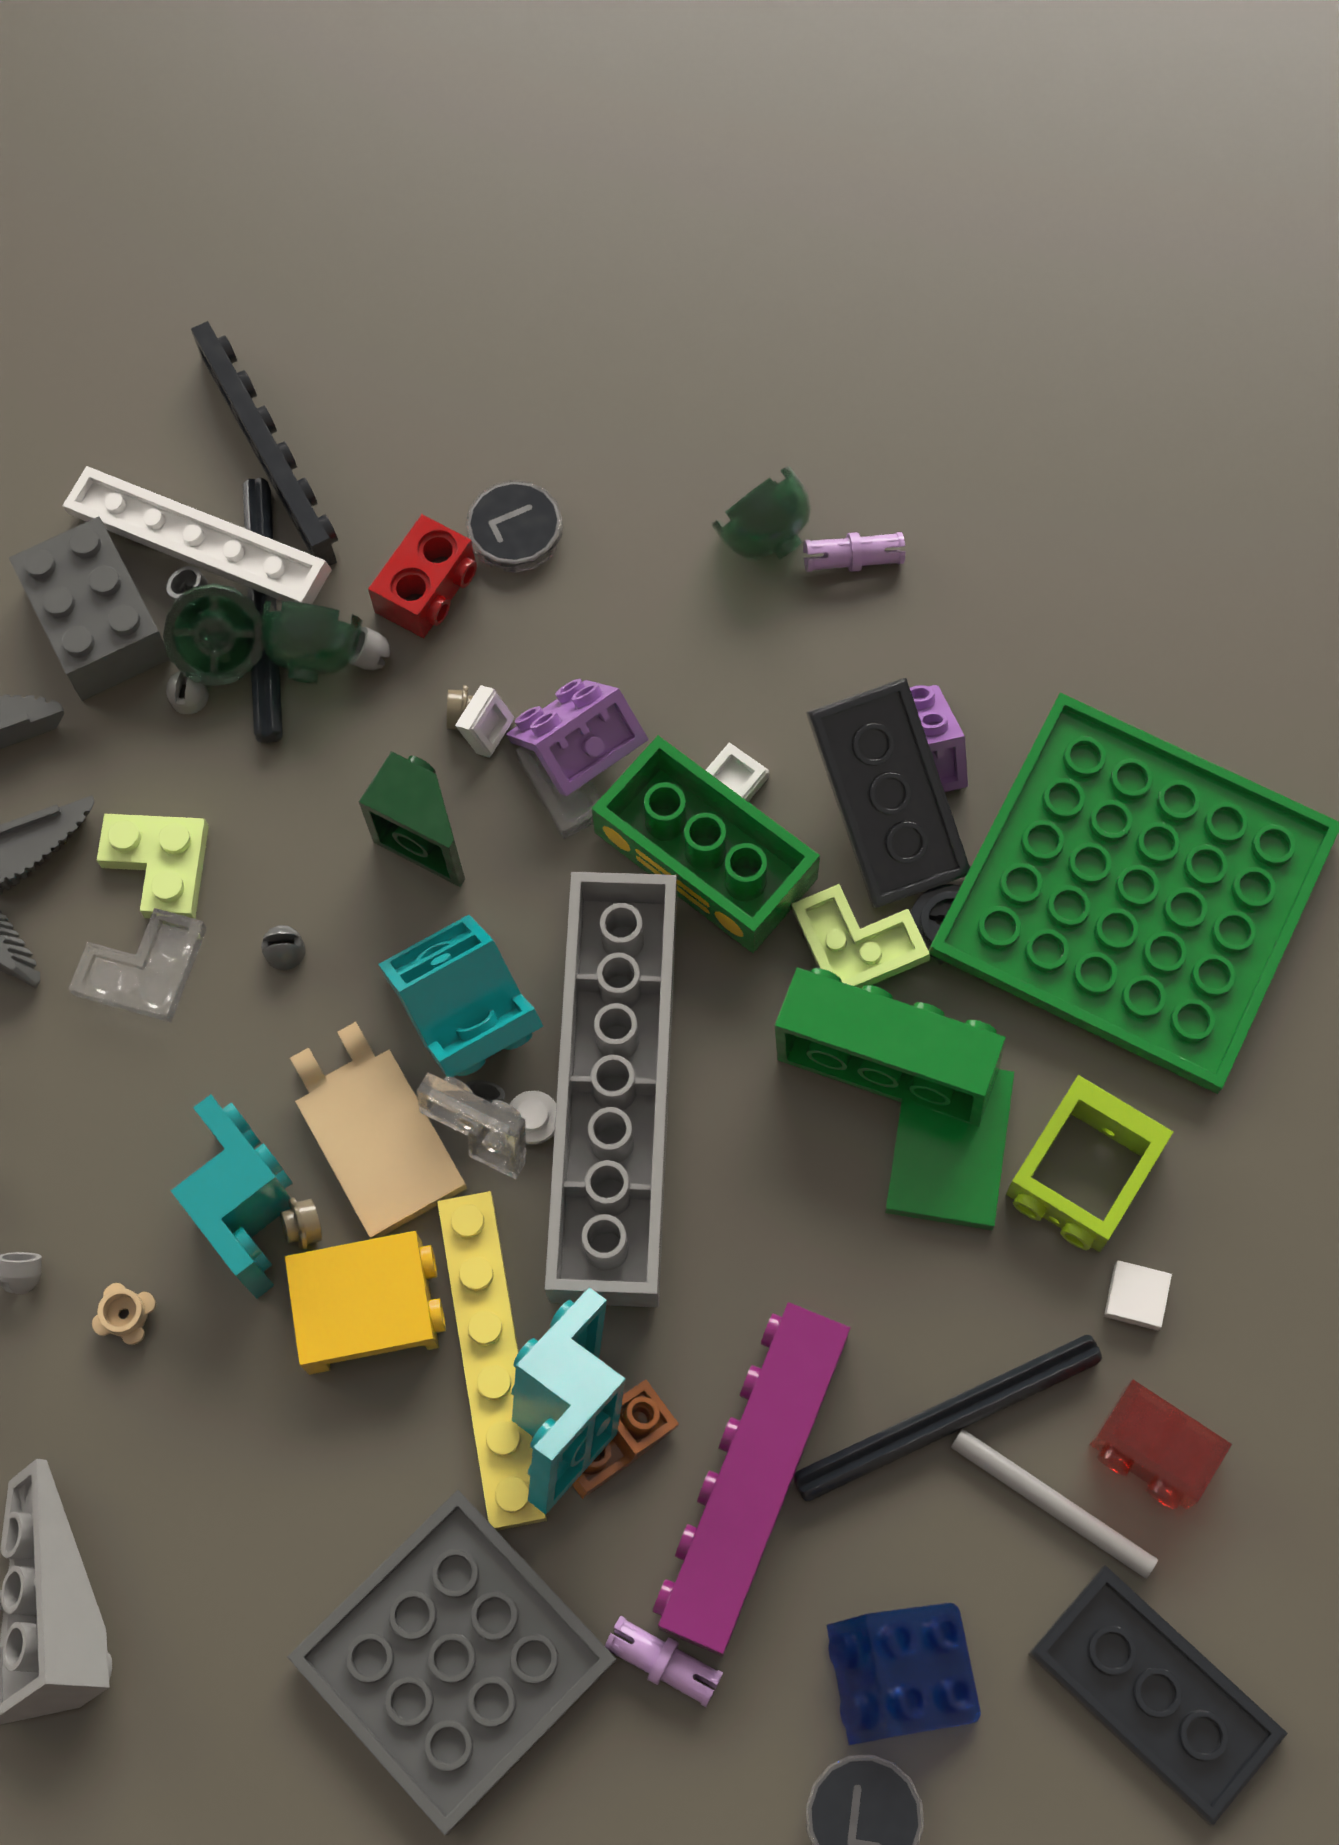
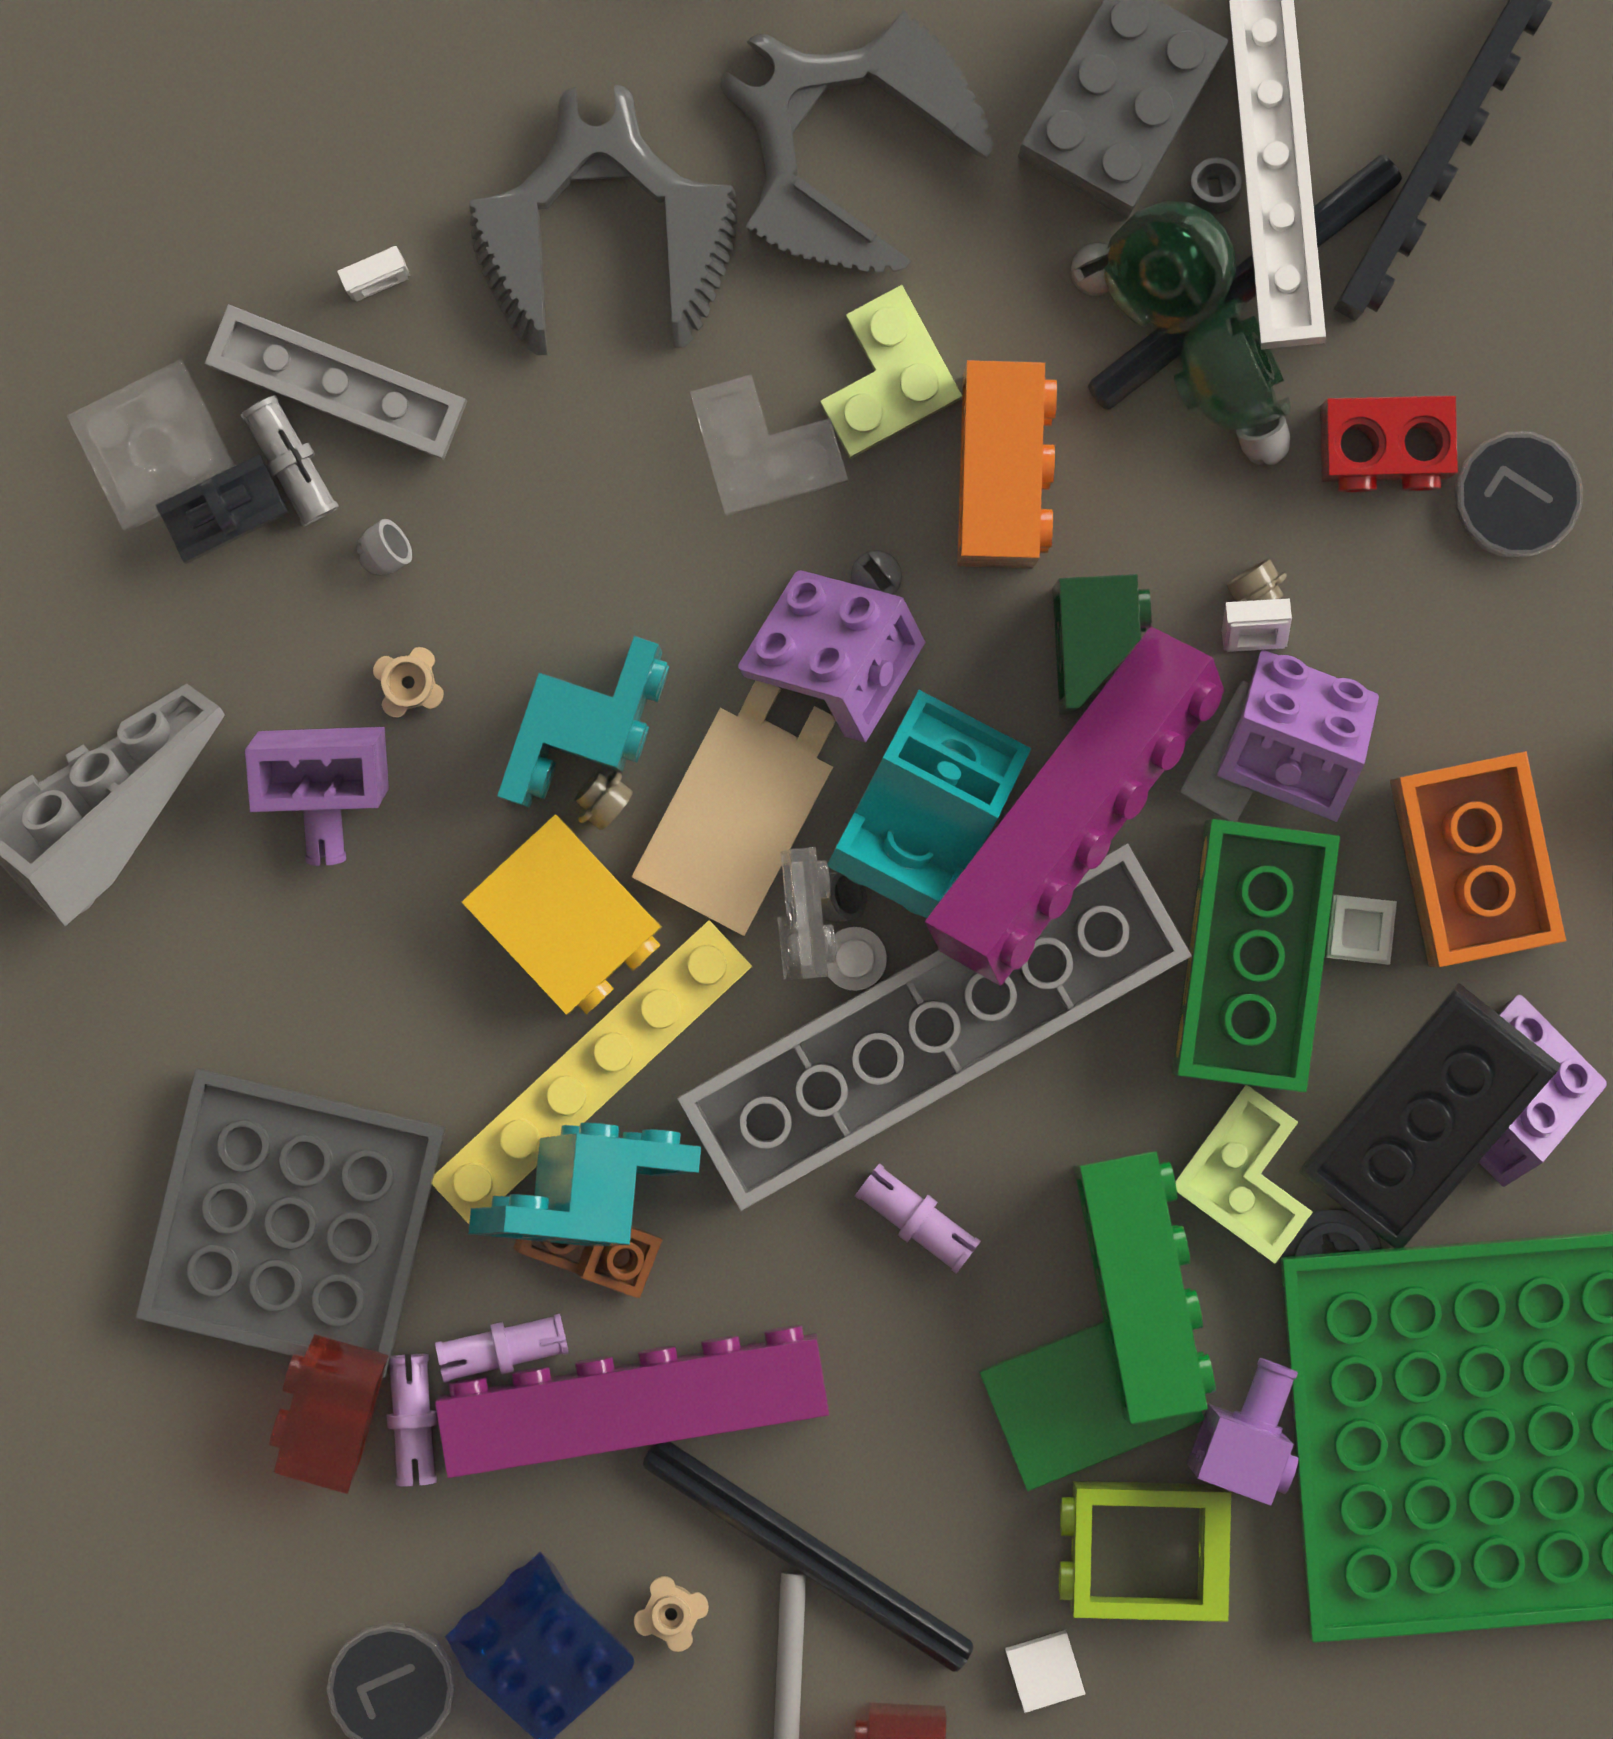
camera: 55 degrees right, 20 degrees up
(140, 1418) = (319, 775): none -> medium lavender brick
(264, 809) = (1005, 464): none -> orange brick
(303, 987) = (837, 647): none -> medium lavender bracket
(524, 894) = (1076, 806): none -> magenta brick
(616, 1720) = (328, 1414): none -> clear red brick
(651, 1553) = (501, 1348): none -> lavender pin
(732, 670) = (1478, 860): none -> orange brick
(746, 1184) = (917, 1218): none -> lavender pin
(929, 1566) = (664, 1596): none -> tan plate
(1050, 1044) = (1247, 1447): none -> medium lavender brick

